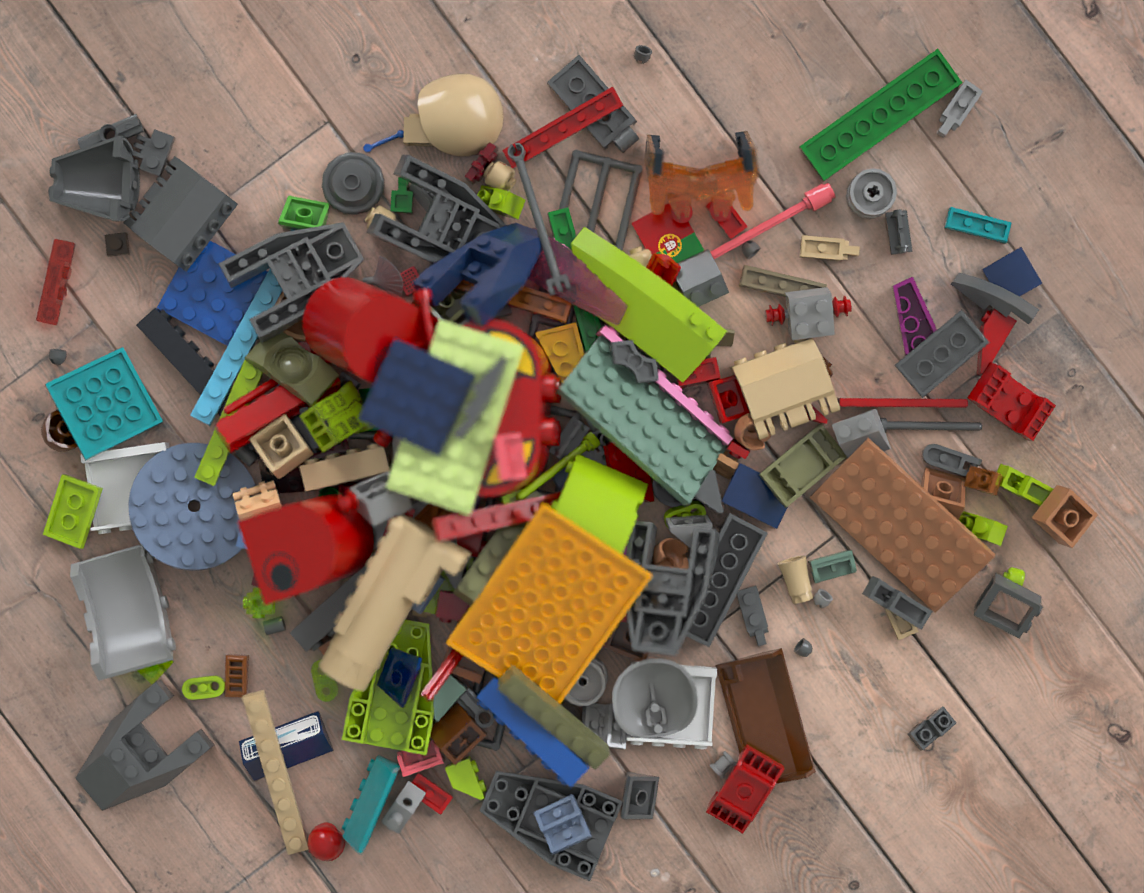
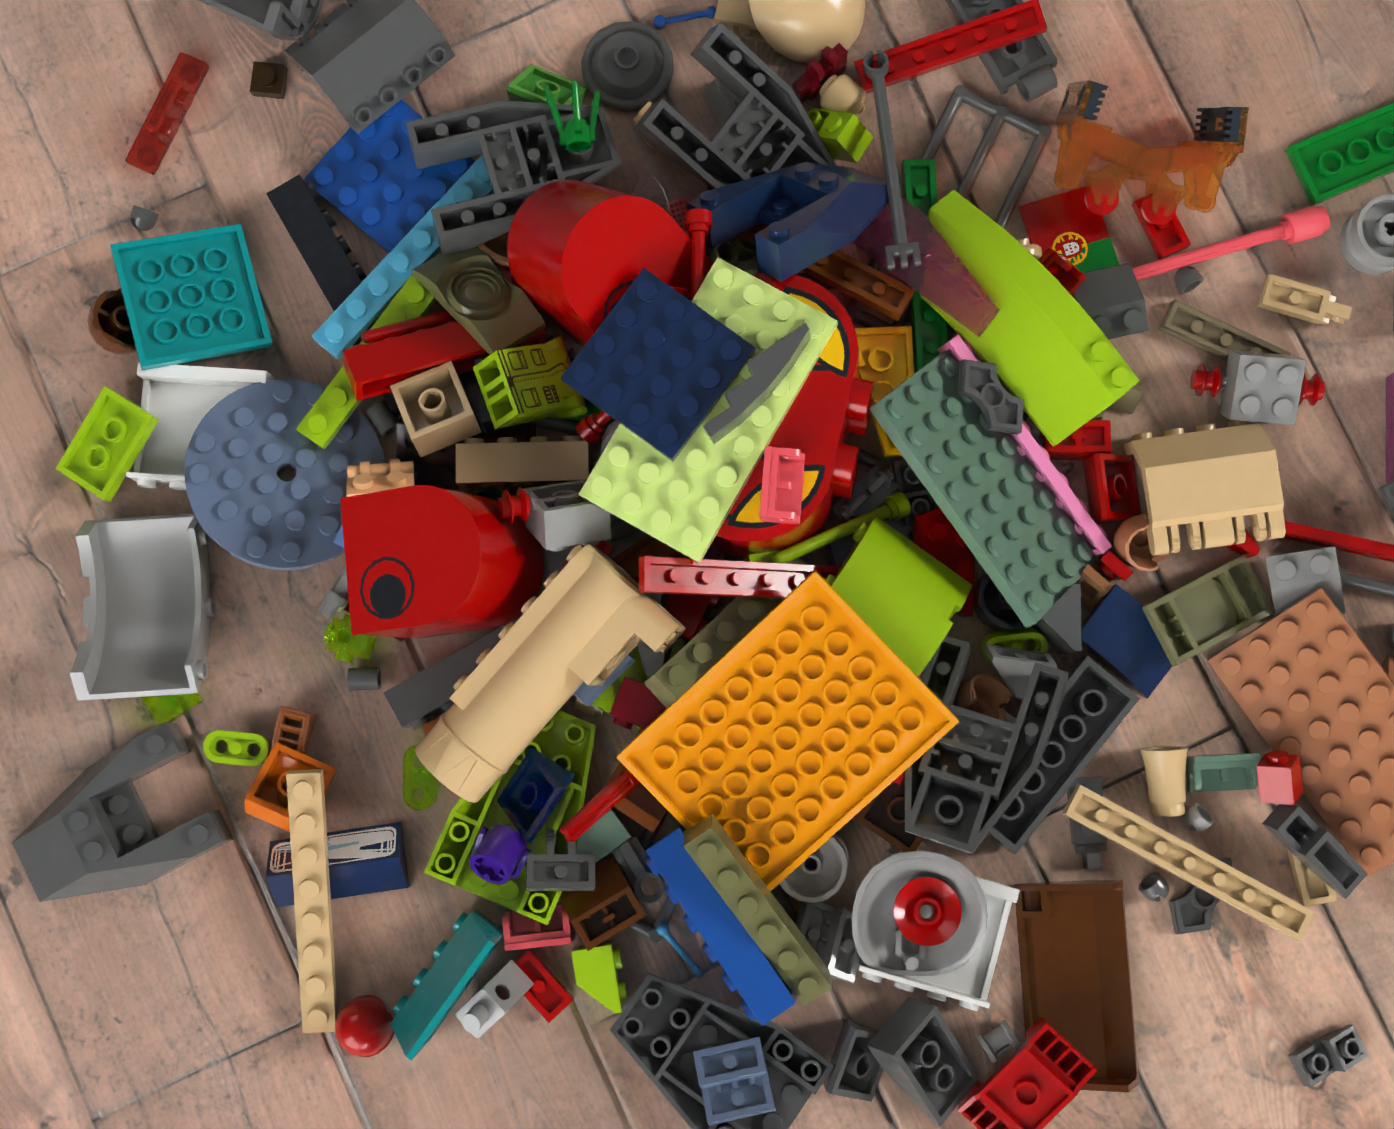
camera: 10 degrees right, 5 degrees down
(233, 711) = (268, 793): none -> orange slope
(245, 577) = (336, 597): none -> light grey plate
(331, 247) = (577, 134): none -> green plant
(385, 718) = (498, 854): none -> dark purple piece
(402, 199) = (694, 100): green plate -> none
(426, 720) = (560, 871): none -> dark grey hinge
(499, 742) = (663, 930): none -> dark azure hinge
(663, 683) = (944, 906): none -> red dish
(679, 785) = (924, 1059): none -> dark grey slope
(819, 628) = (1188, 862): none -> tan plate
(831, 655) = (1194, 908): none -> dark grey tile
(866, 563) = (1279, 778): none -> brick

